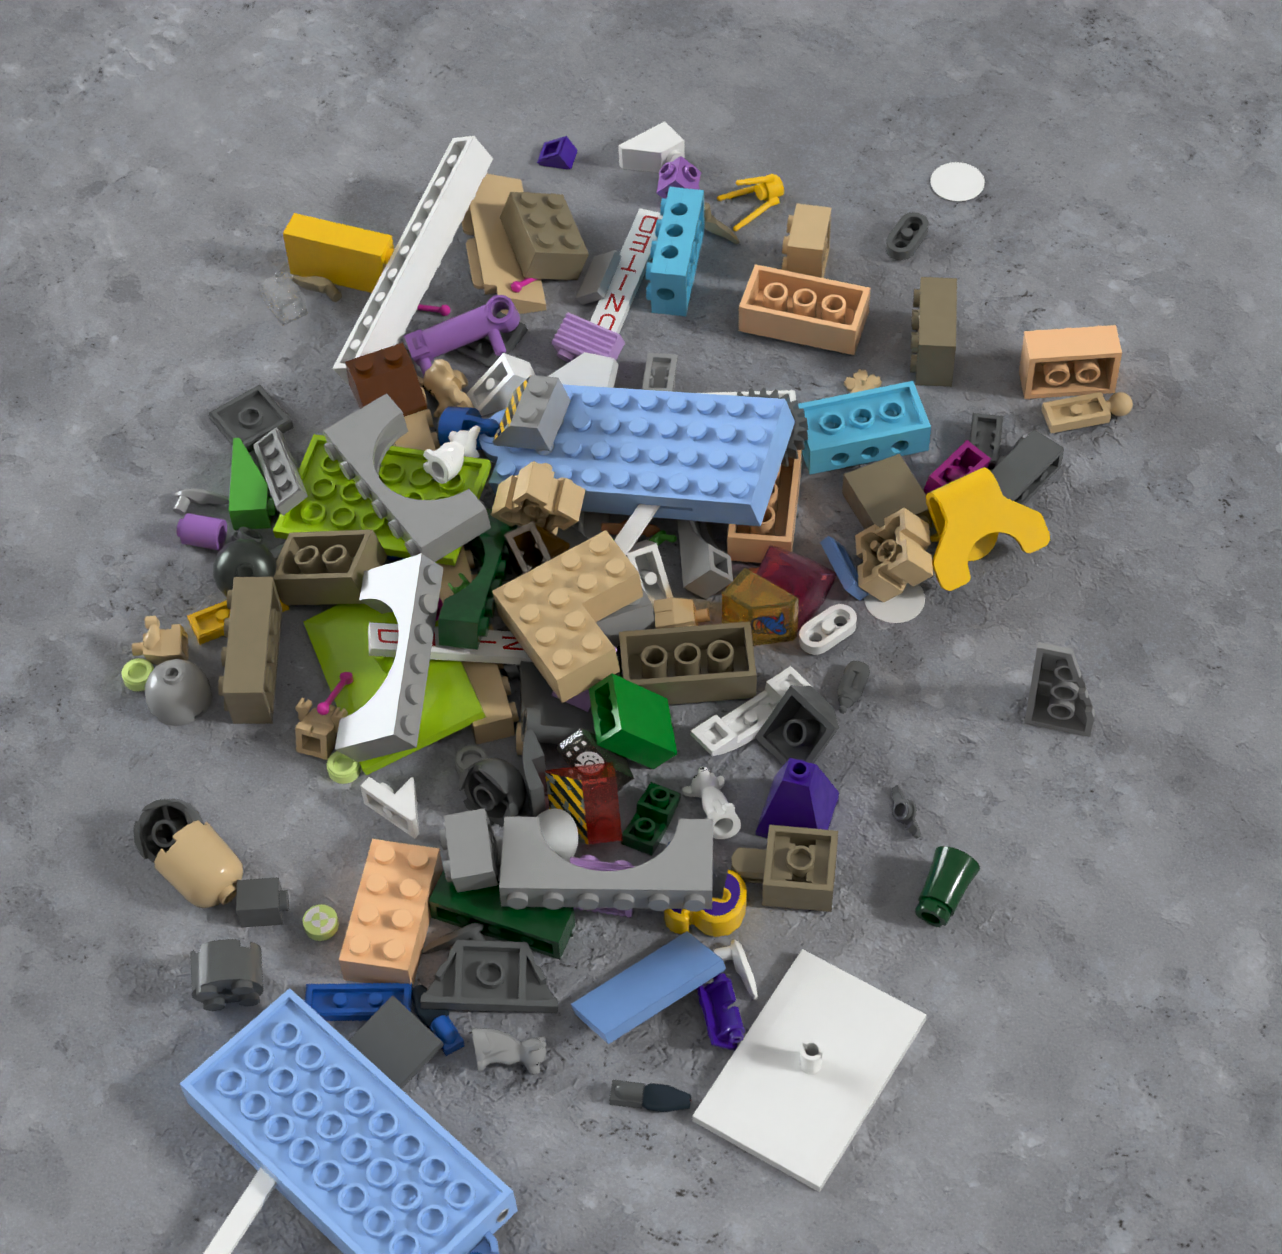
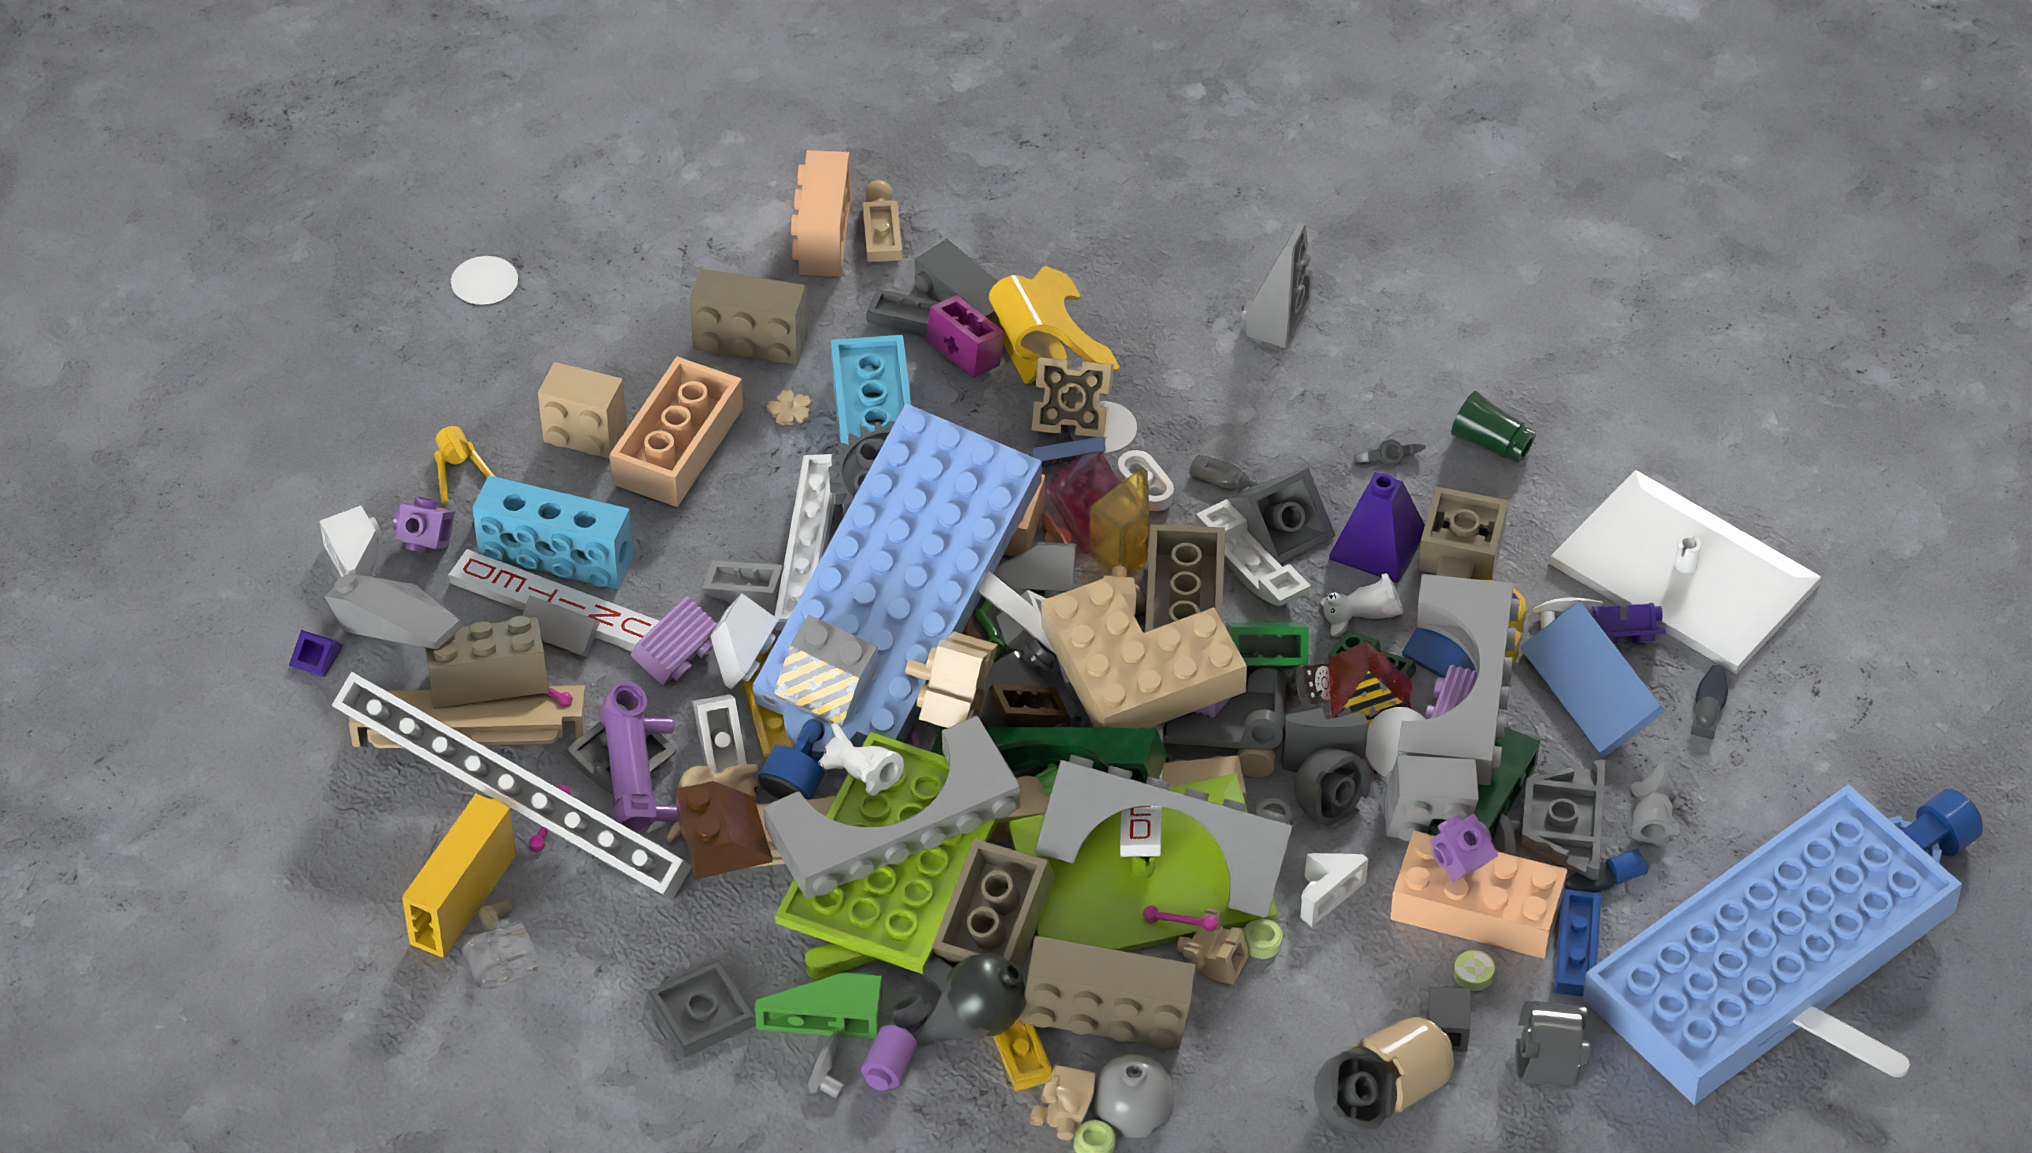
camera: 85 degrees left, 5 degrees down
(280, 471) = (822, 958): light grey tile -> none
(396, 870) = (1462, 846): none -> medium lavender brick
(396, 1042) = (1635, 900): dark grey tile -> none
(584, 170) = (391, 611): none -> light grey wedge
(883, 490) = (981, 398): dark tan brick -> none
(907, 236) = (575, 333): dark grey plate -> none

